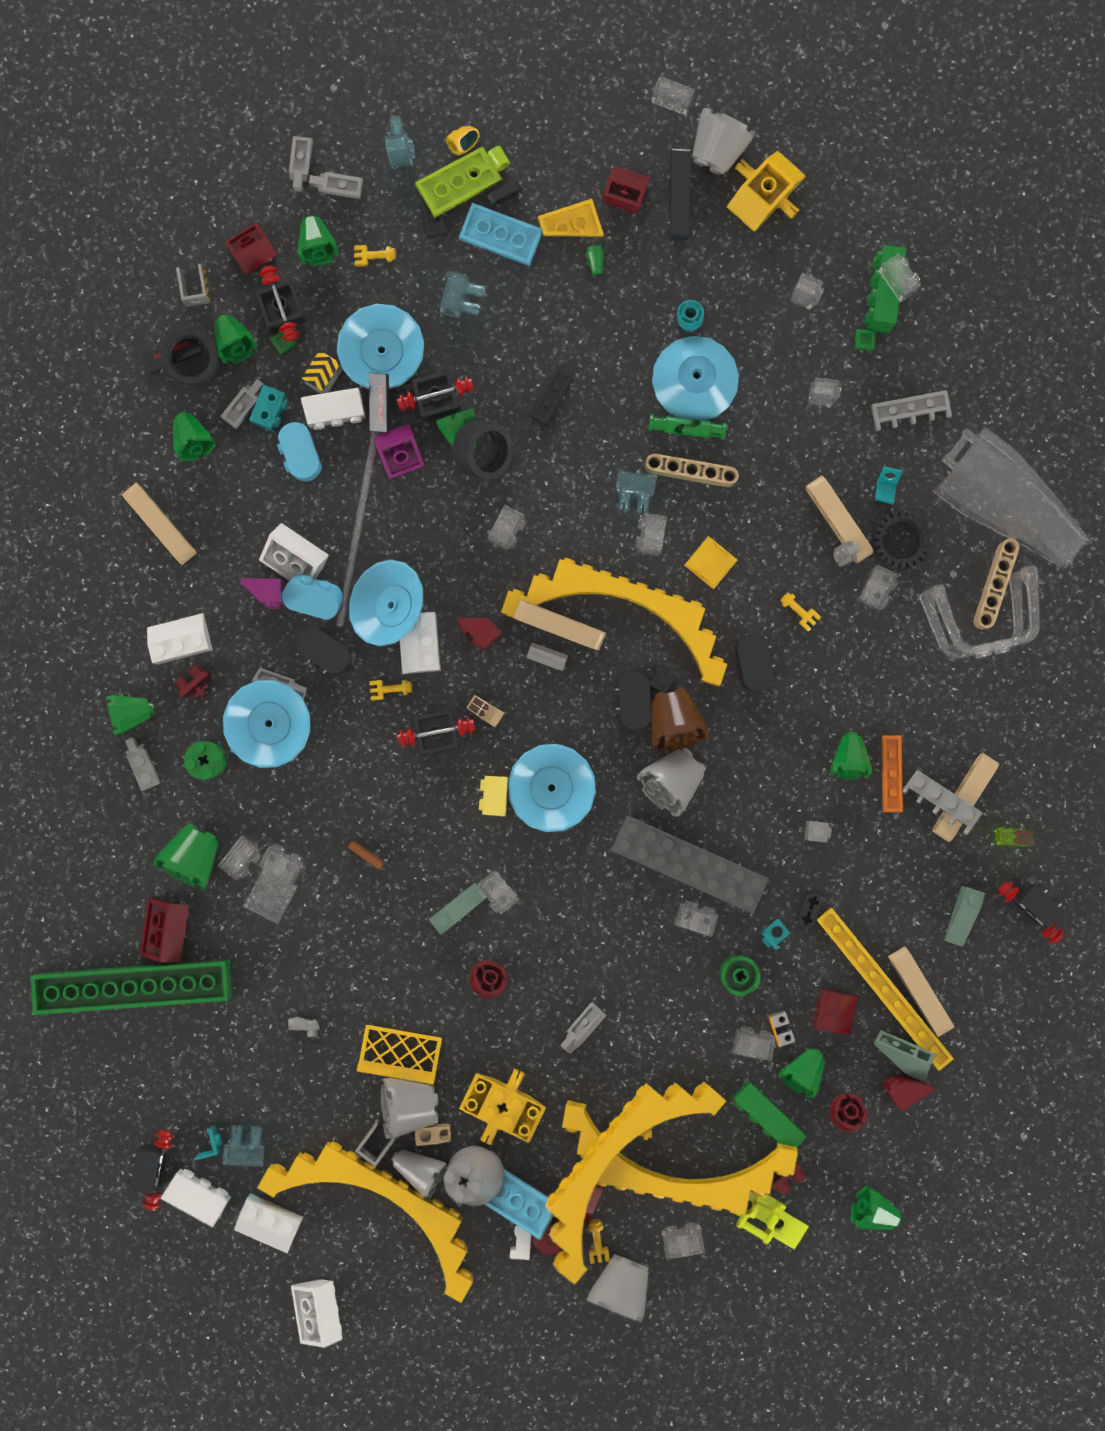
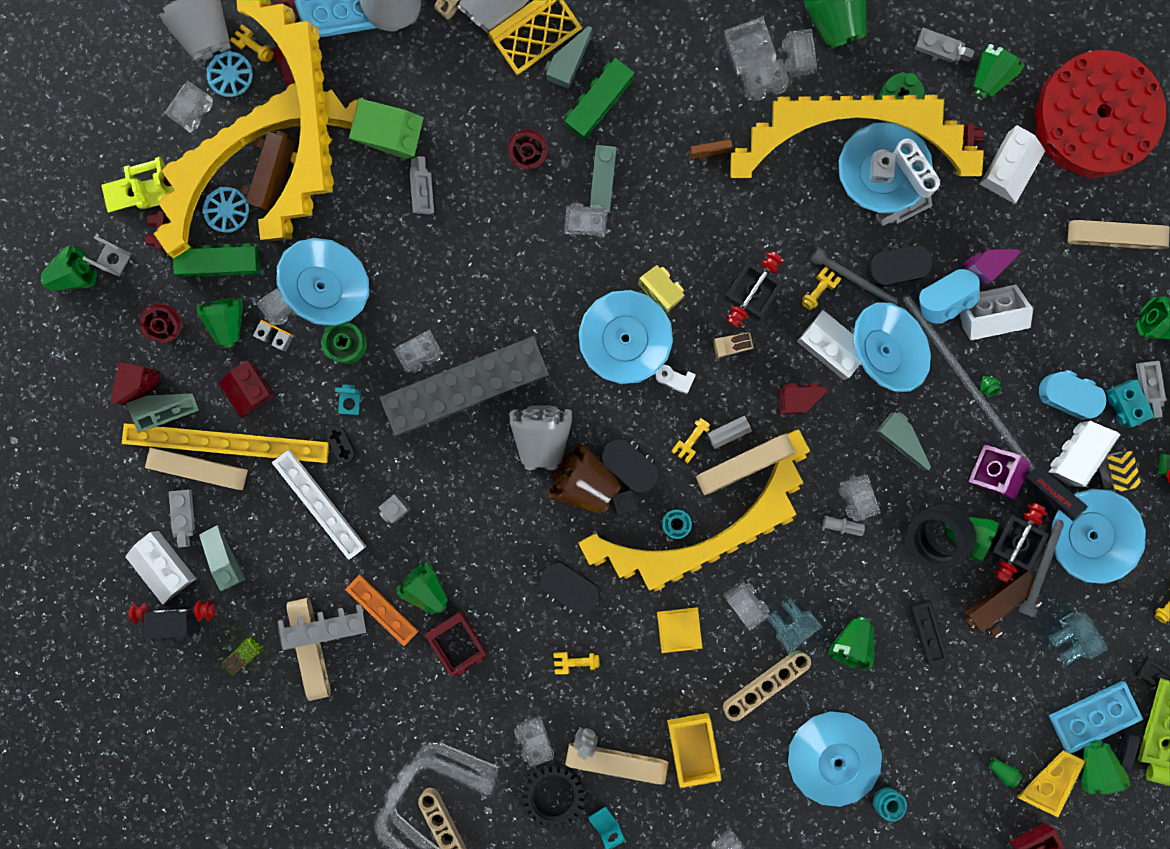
camera: 140 degrees right, 0 degrees up
(60, 607) = (1129, 107): none -> red brick
(212, 736) = (917, 115): none -> yellow arch
(243, 709) = (916, 178): none -> white beam
(270, 726) = (882, 166): none -> light grey brick
(346, 512) = (990, 386): none -> green plate
(368, 708) = (820, 257): none -> dark grey piece
(400, 1012) = (567, 60): none -> sand green slope
(405, 964) = (599, 99): none -> green brick
(437, 540) = (902, 437): none -> sand green slope
(471, 348) = (1029, 606): none -> dark grey piece
(484, 368) = (1000, 602): none -> reddish brown brick
(521, 1113) = (438, 59): yellow slope -> none
(533, 199) = (1102, 770): none -> green cone
(535, 520) = (843, 526): none -> light grey axle
(547, 726) = (674, 380): none -> white leg
(559, 678) = (686, 447): none -> yellow hinge
(567, 1089) = (386, 128): none -> bright green slope
(608, 437) = (855, 645): none -> green cone
(633, 1237) = (229, 73): none -> medium azure wheel
(643, 623) = (686, 524): none -> teal wheel
(673, 1140) = (270, 170): none -> reddish brown brick
(691, 427) = (800, 718): green piece -> none
(697, 1025) = (329, 266): none -> medium azure dish
(727, 1147) = (225, 209): none -> medium azure wheel
(781, 477) = (694, 750): none -> yellow piece
(846, 1195) = (109, 249): none -> light grey piece
(861, 721) = (461, 668): none -> dark red window
(863, 884) = (319, 504): none -> white plate
(961, 970) = (182, 516): none -> light grey hinge
(1009, 951) = (160, 566): none -> white slope

